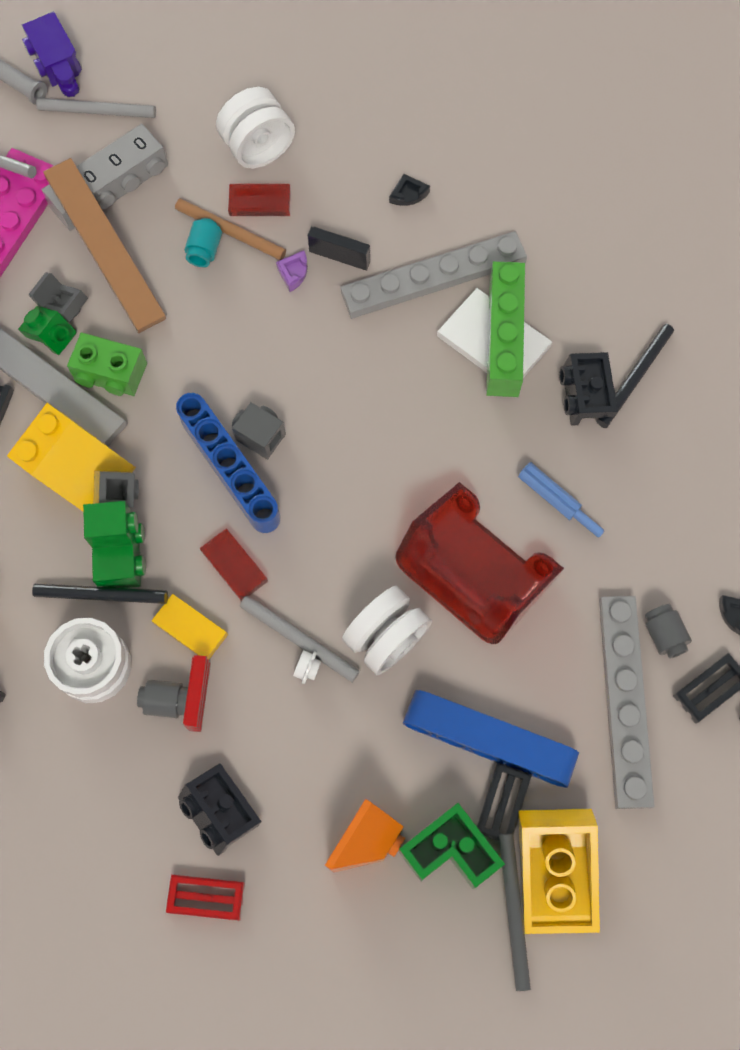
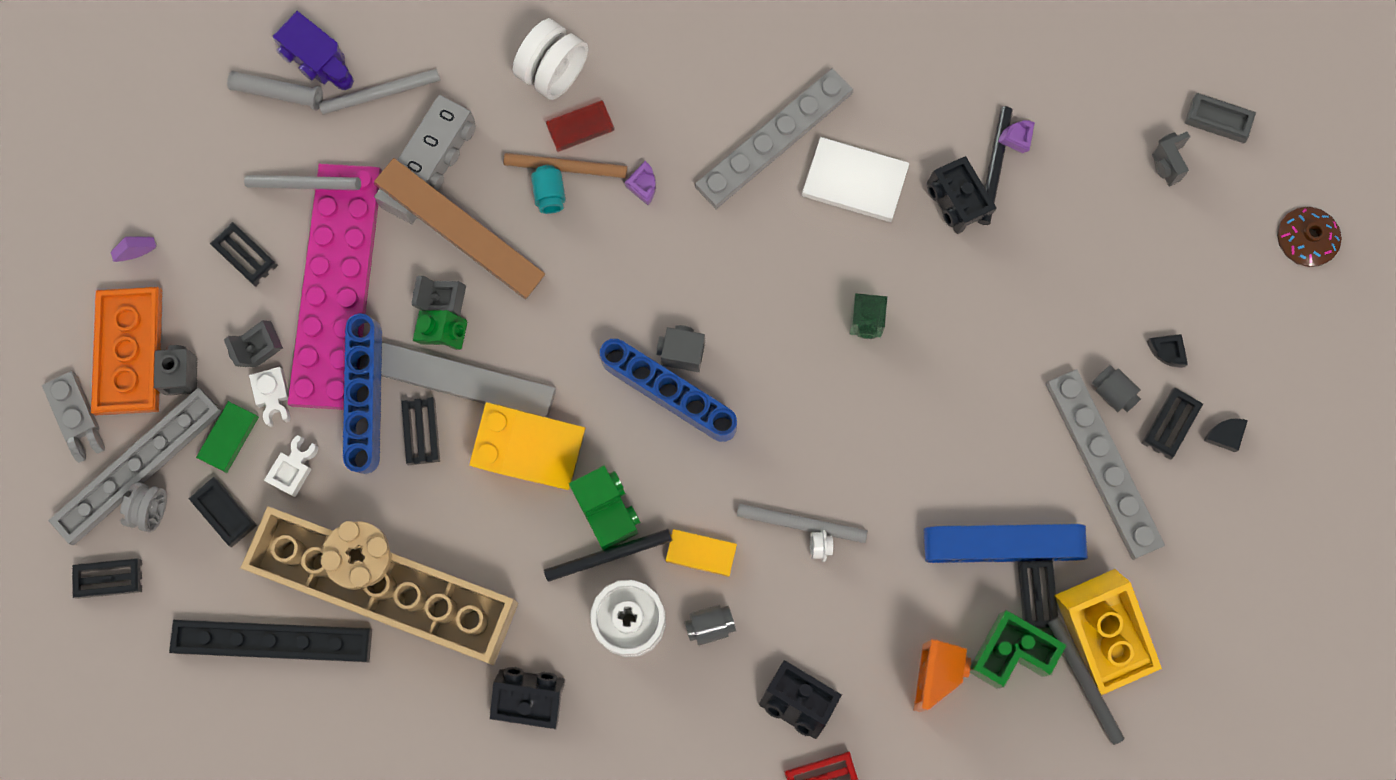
camera: 20 degrees left, 5 degrees up
(107, 365) = (514, 342): bright green brick -> none
(115, 487) = (582, 456): dark grey brick -> none
(196, 693) = (736, 607): red tile -> none
(233, 564) = (714, 481): clear red tile -> none
(339, 248) = (678, 146): black tile -> none
(386, 630) = (882, 487): white wheel -> none
(408, 191) = (716, 65): black tile -> none
(448, 464) = (868, 316): none -> clear green brick
(472, 568) = (930, 401): clear red windscreen -> none
(506, 329) = (875, 186): bright green arch -> none
(557, 497) = (973, 306): medium blue axle -> none
(669, 355) = (1018, 136): none -> medium lavender tile

